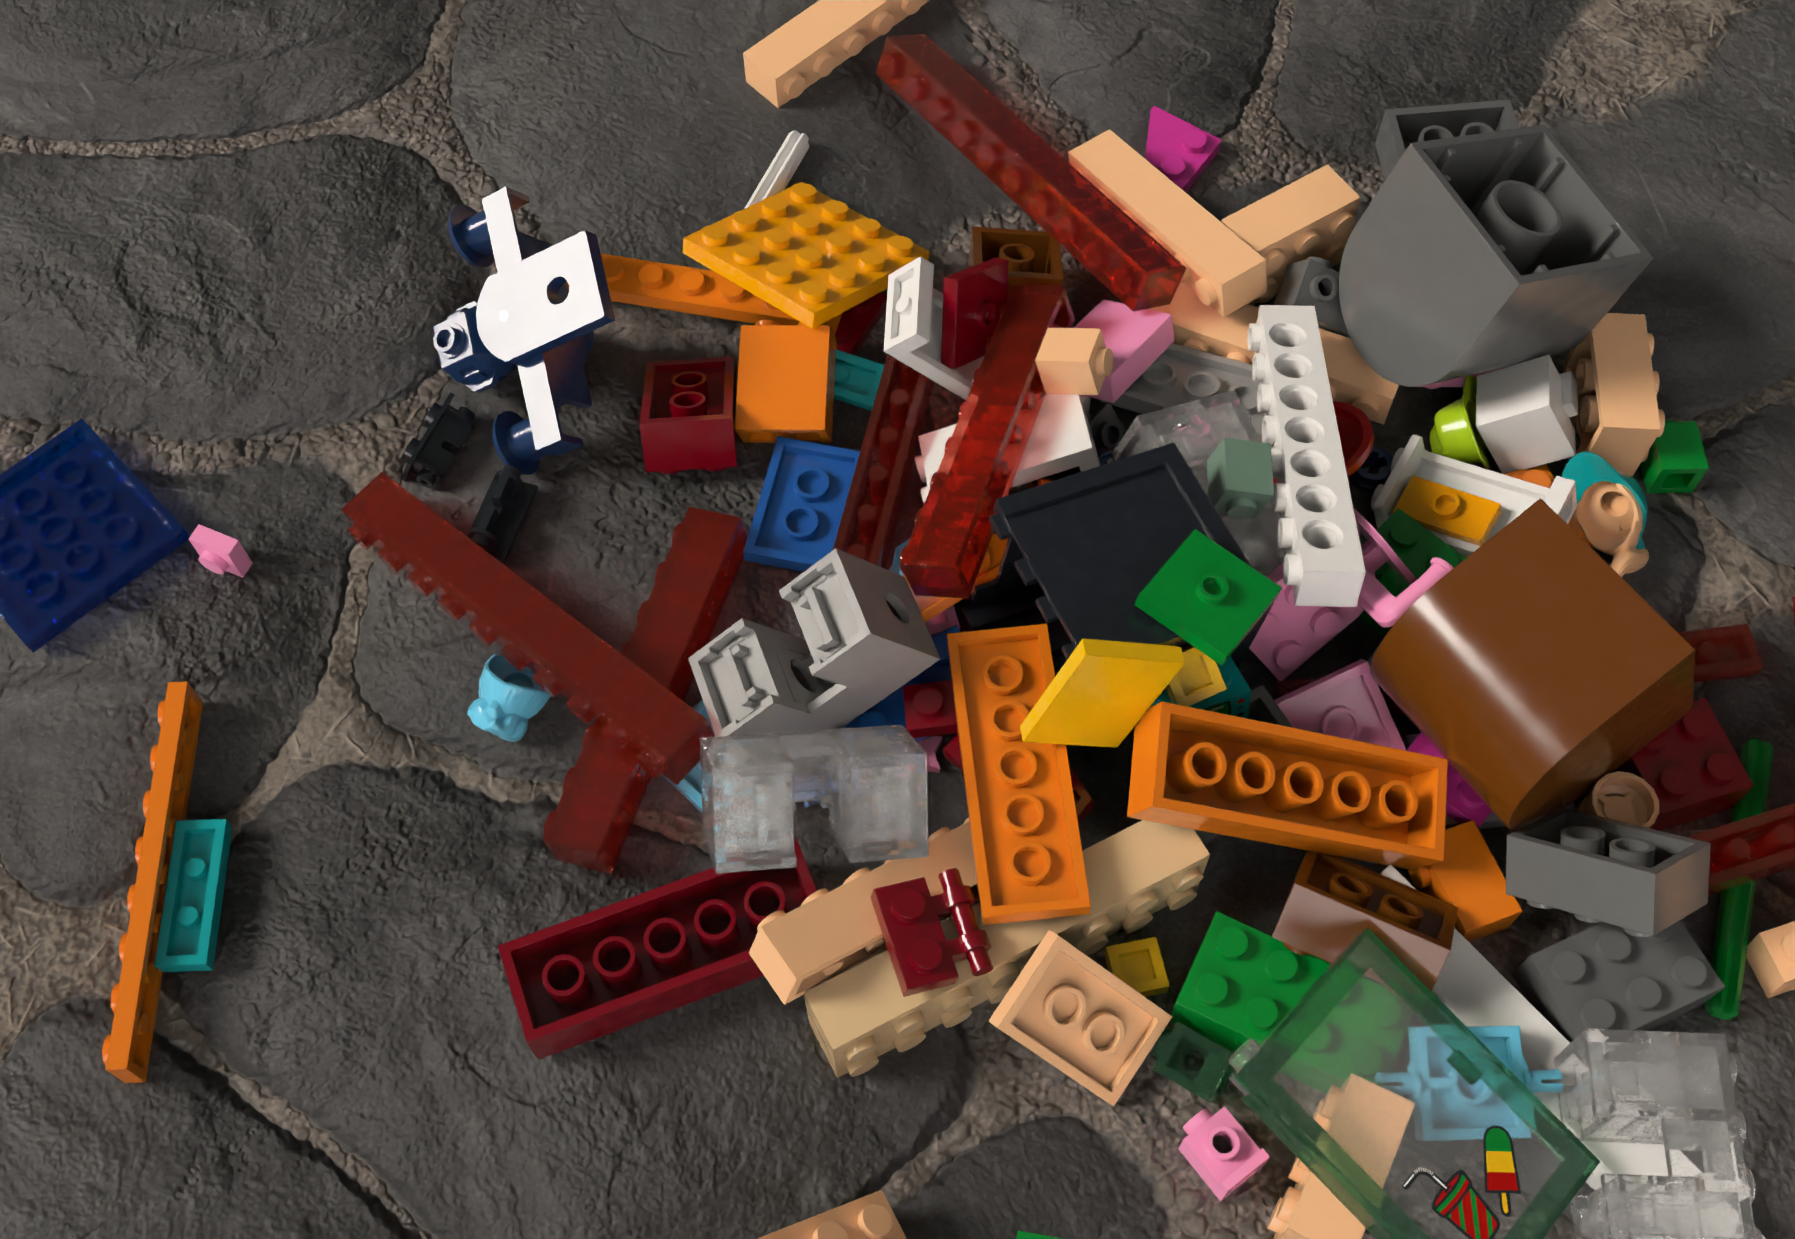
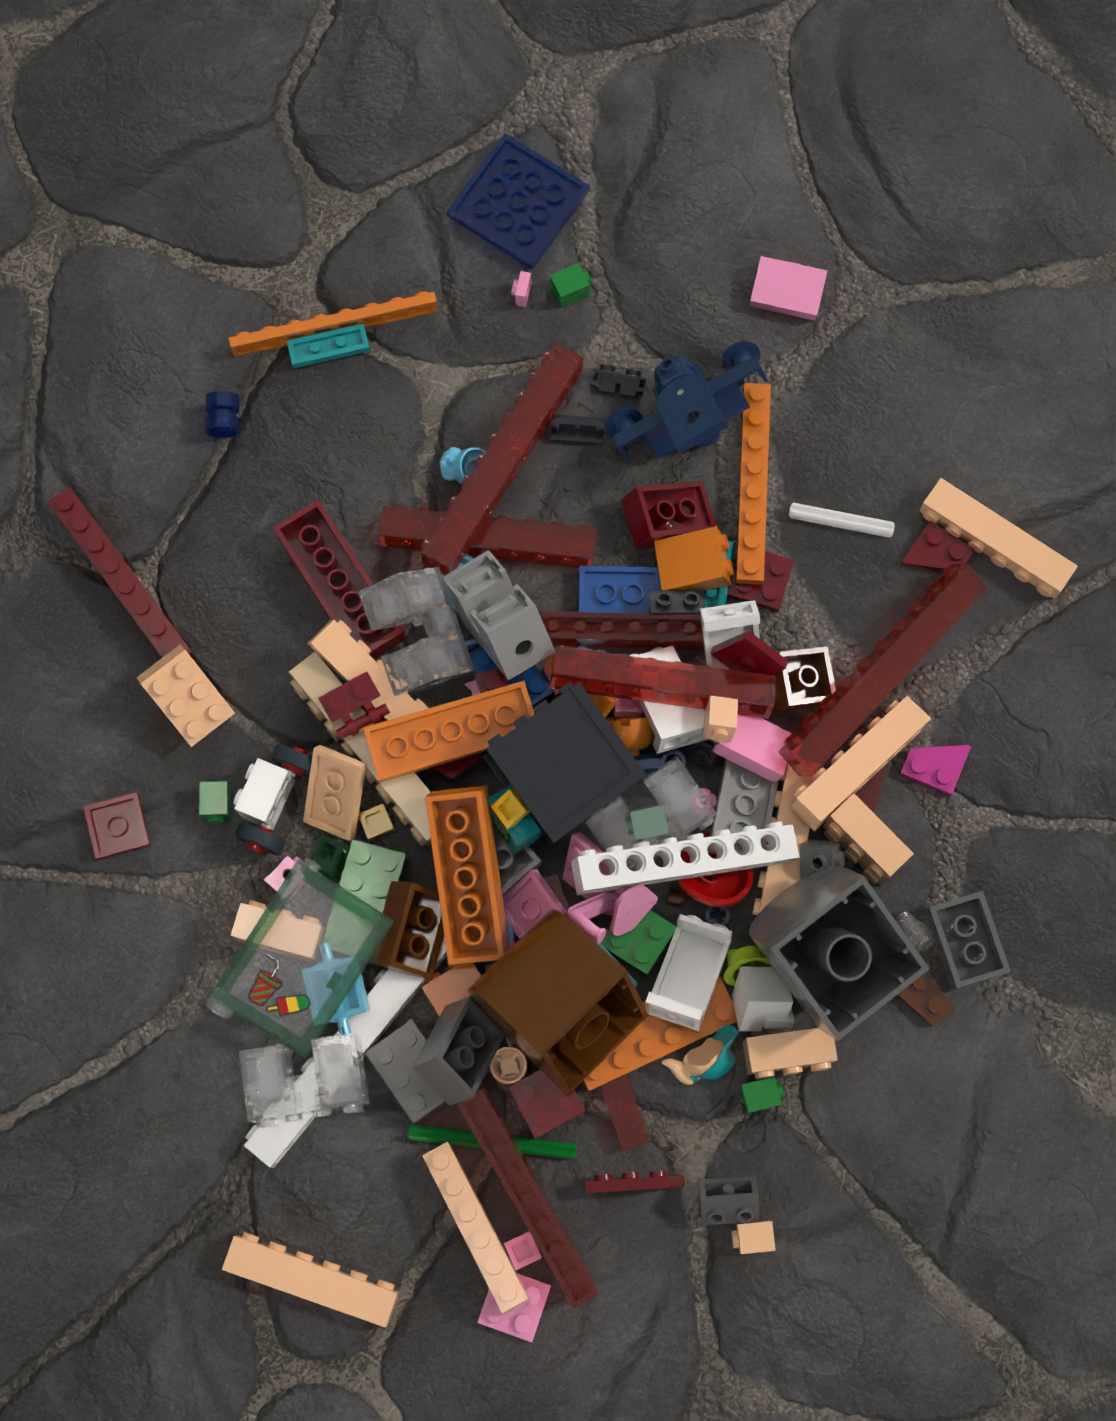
camera: 80 degrees right, 15 degrees up
(243, 480) = (570, 285): none -> green brick
(249, 1113) = (222, 412): none -> clear blue wheel
(372, 190) = (788, 288): none -> bright pink container
(803, 253) = (787, 552): light orange plate -> none
(845, 93) = (937, 549): none -> dark red wing
(850, 413) = (676, 601): none -> black hinge
(1060, 1153) = (266, 795): none -> brick
(1101, 693) = (481, 759): yellow tile -> none
(1208, 597) = (543, 804): green plate -> none
(1449, 510) = (685, 958): light orange plate -> none

